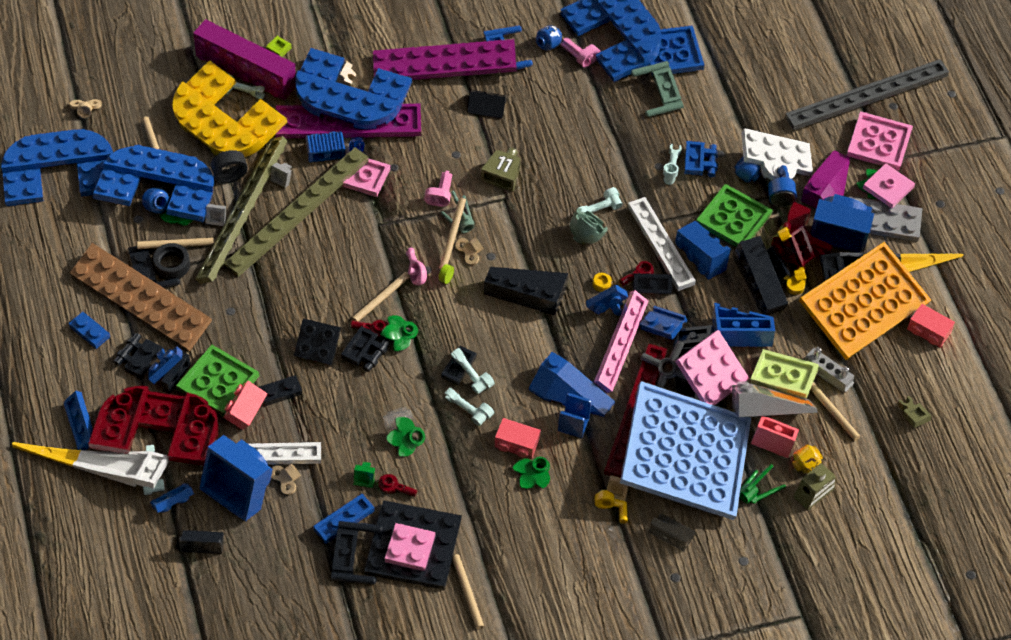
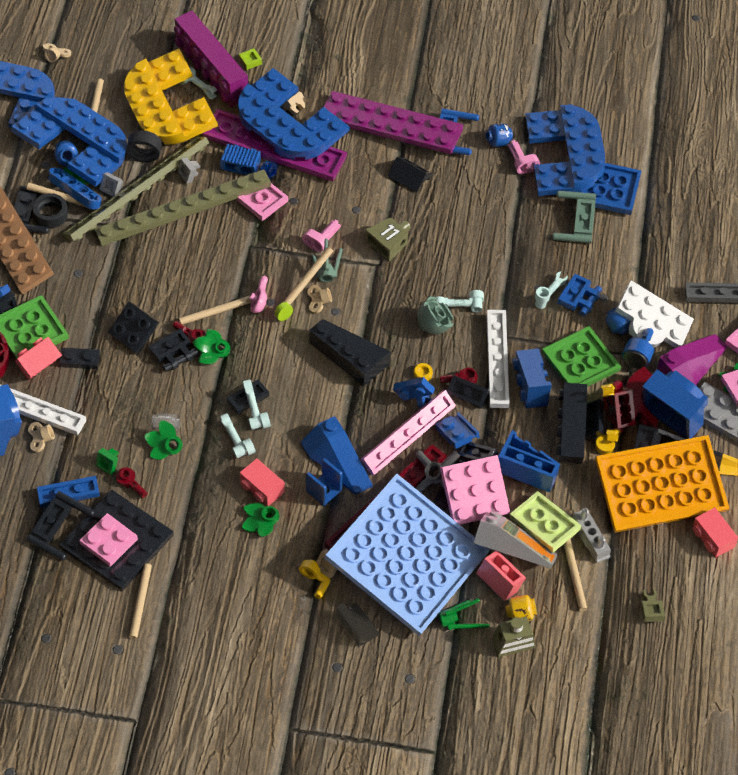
camera: 25 degrees right, 0 degrees up
(183, 231) = (74, 188): none -> blue beam

